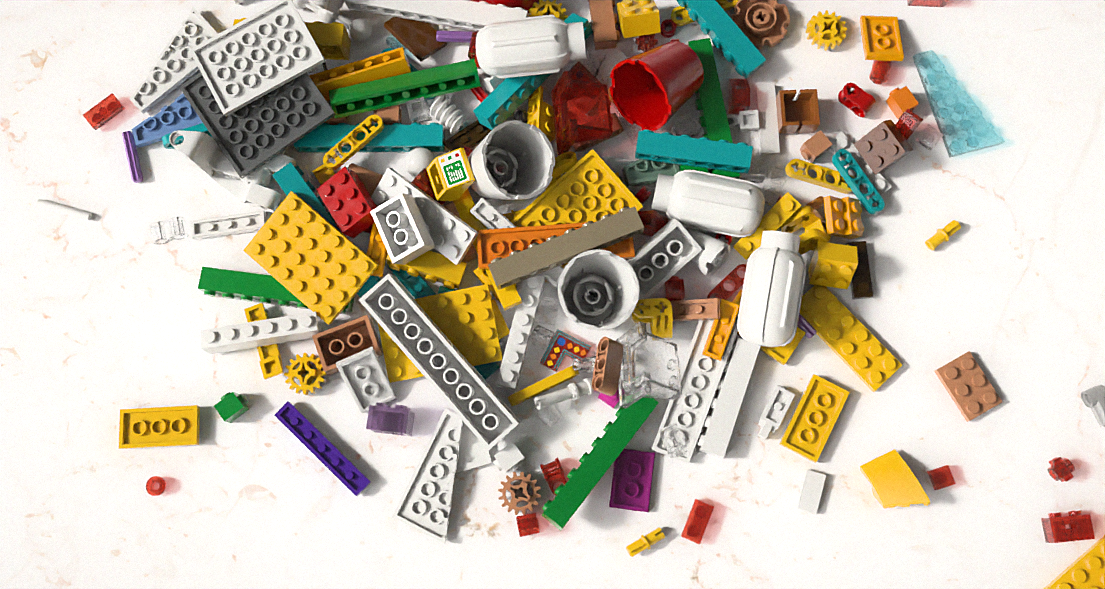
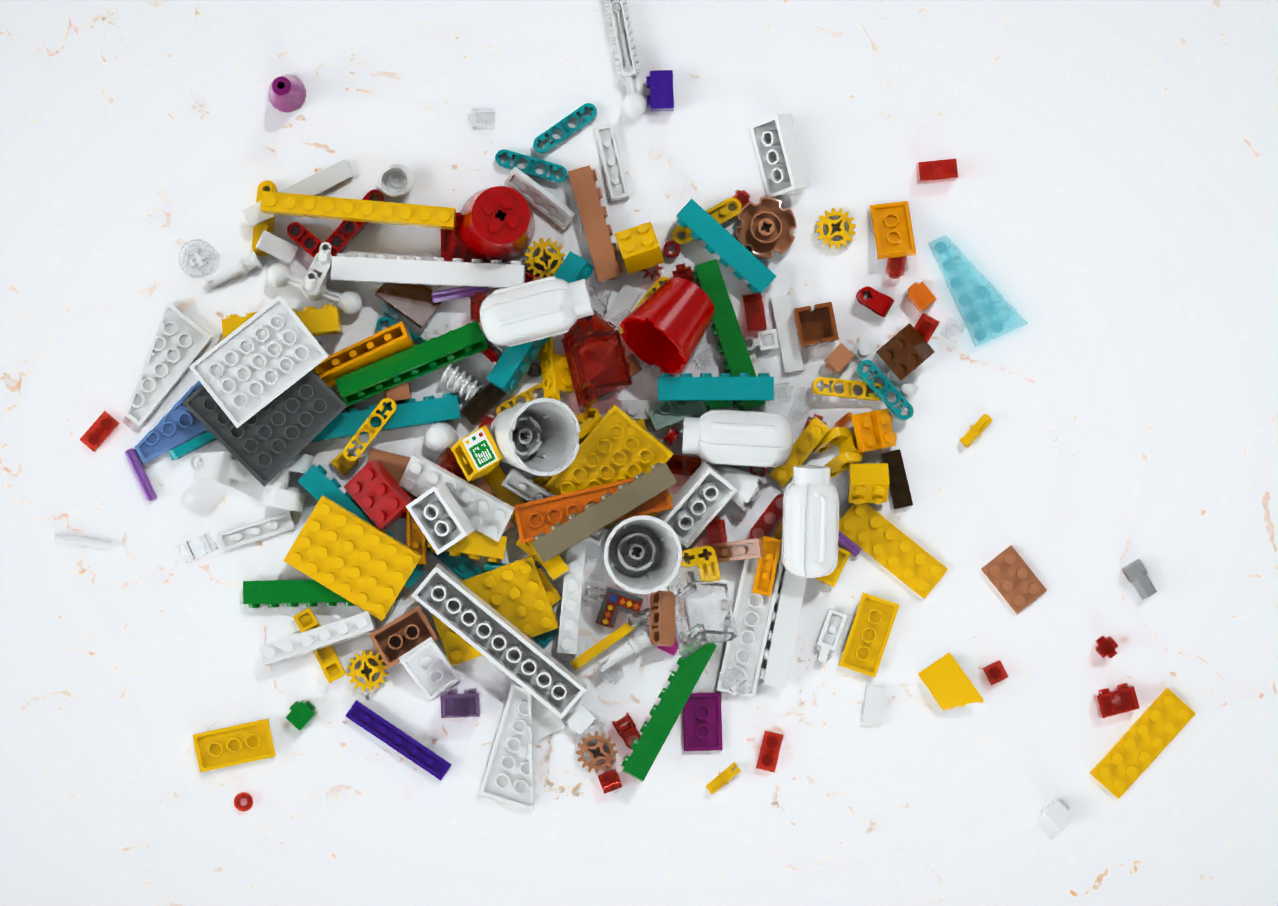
camera: 15 degrees left, 10 degrees up
(419, 110) = (429, 383): clear brick -> none

